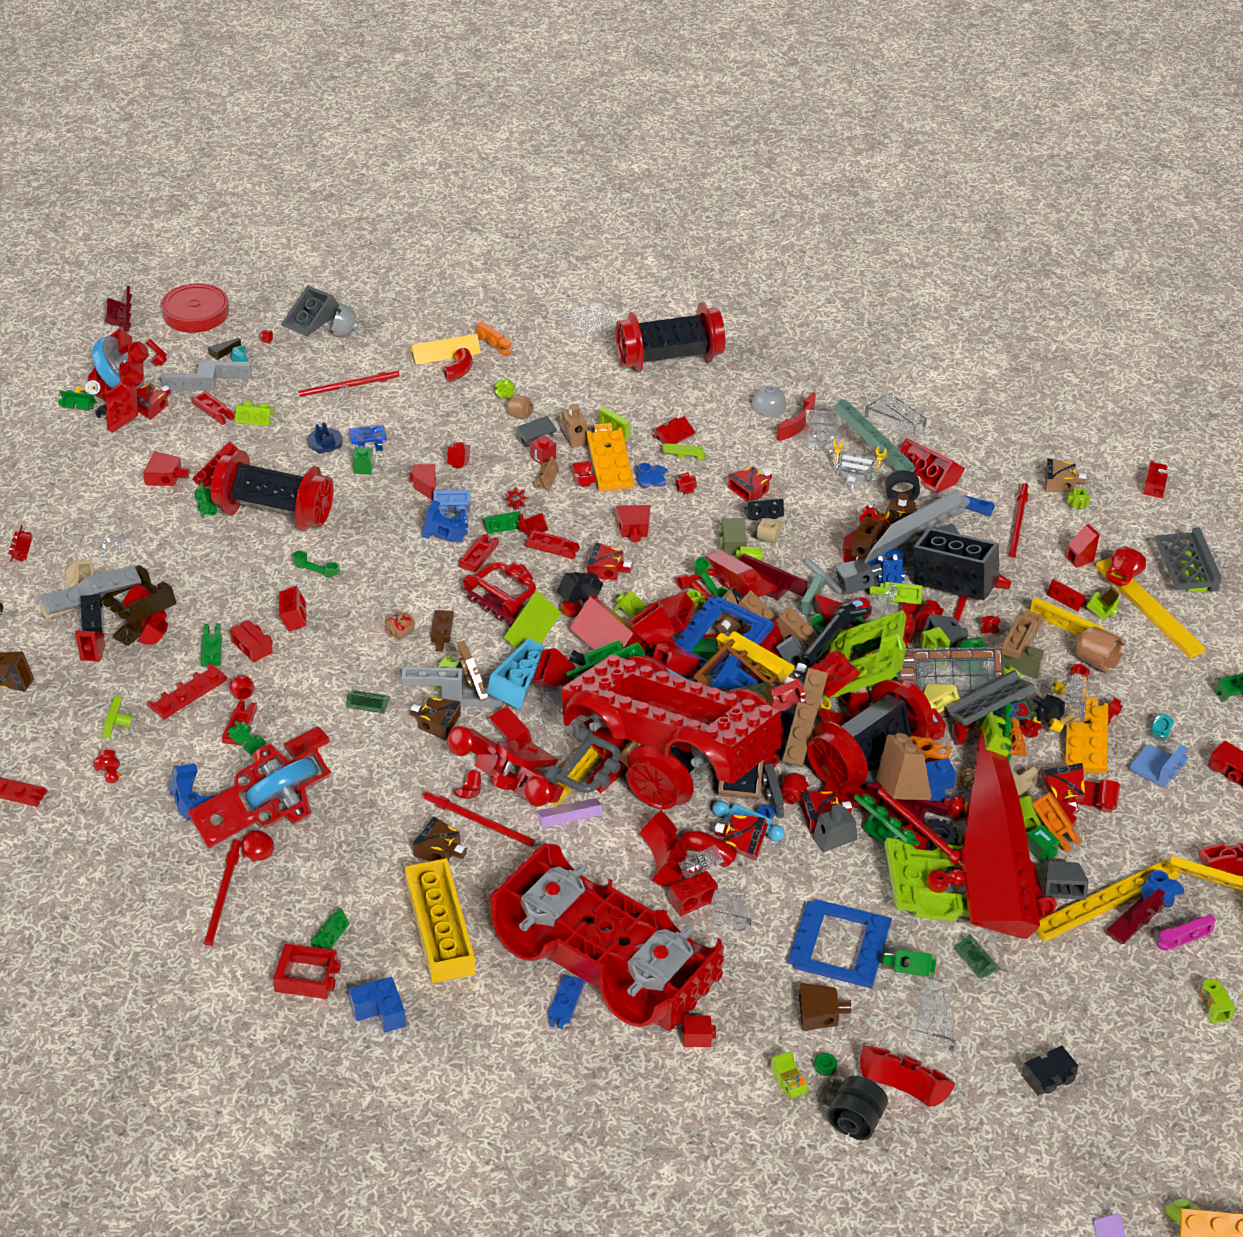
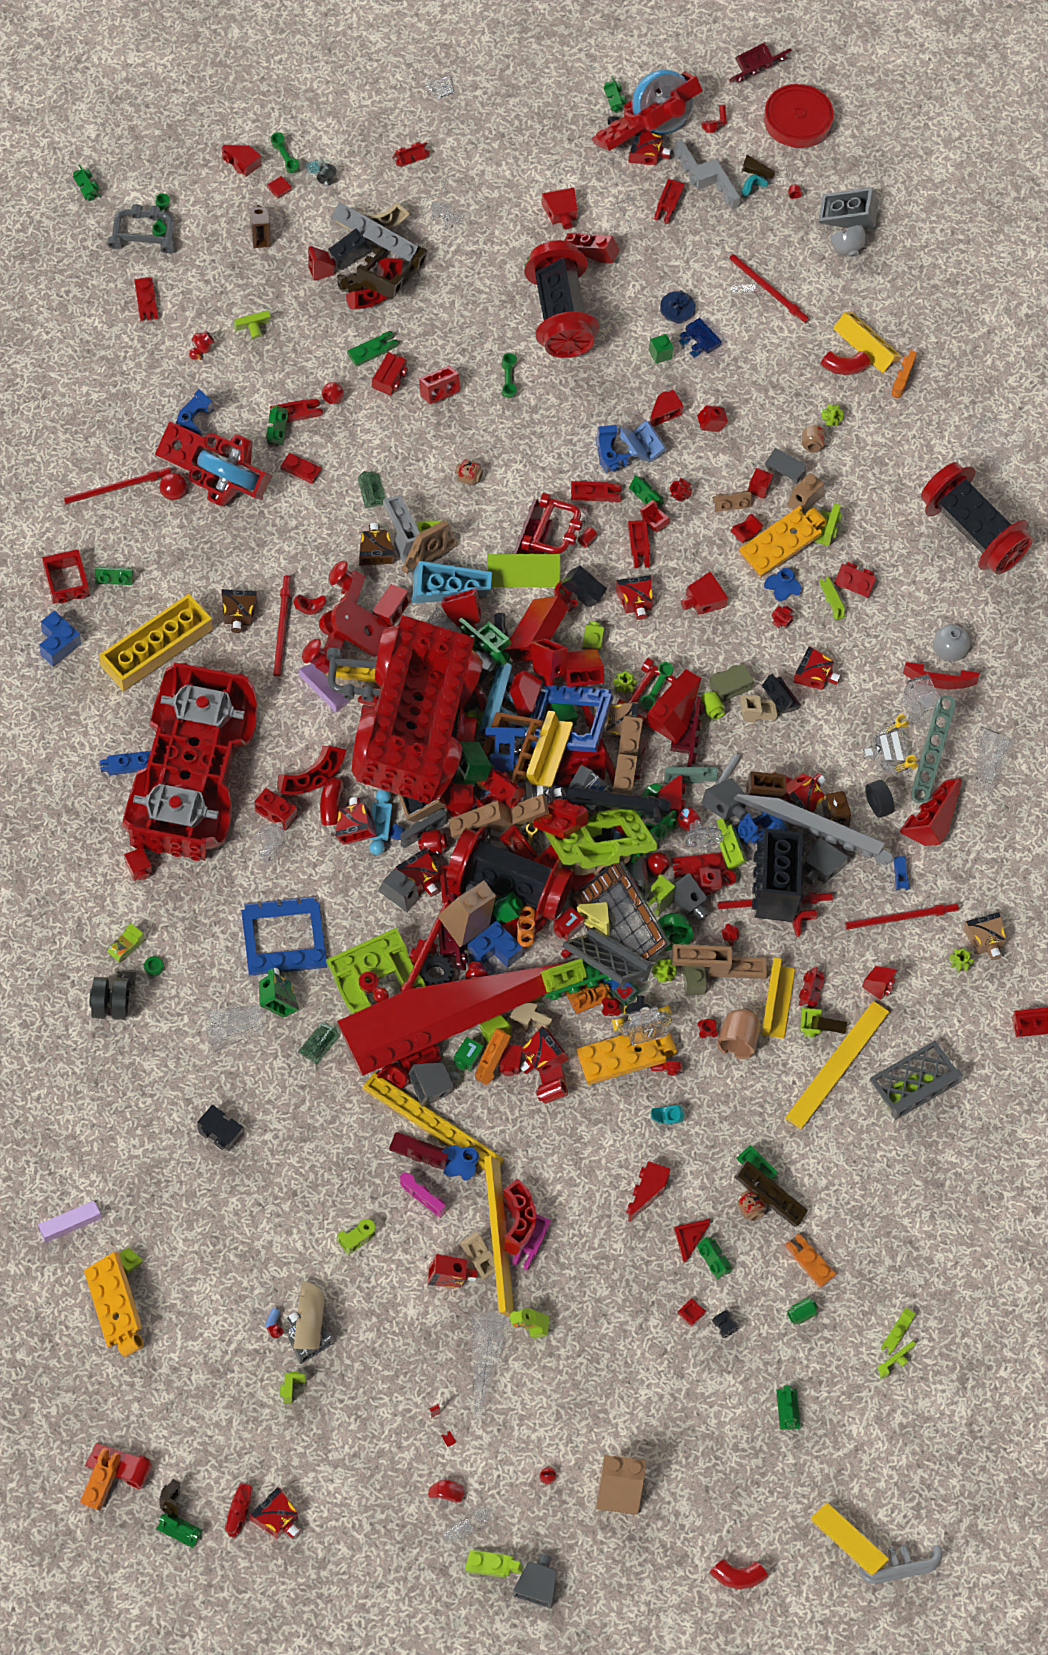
camera: 60 degrees right, 20 degrees up
(89, 387) = (624, 99): white hinge -> none
(188, 692) = (311, 359): red hinge -> none
(254, 414) = (681, 235): lime bracket -> none
(442, 628) = (485, 505): reddish brown hinge -> none
(700, 862) = (302, 799): clear leg -> none
(820, 1006) = (204, 942): reddish brown torso -> none
(883, 826) = (421, 922): green bracket -> none
(905, 1075) = (168, 1023): red brick -> none
(1126, 563) = (874, 1025): red piece -> none
(1159, 765) = (619, 1123): medium blue bracket -> none

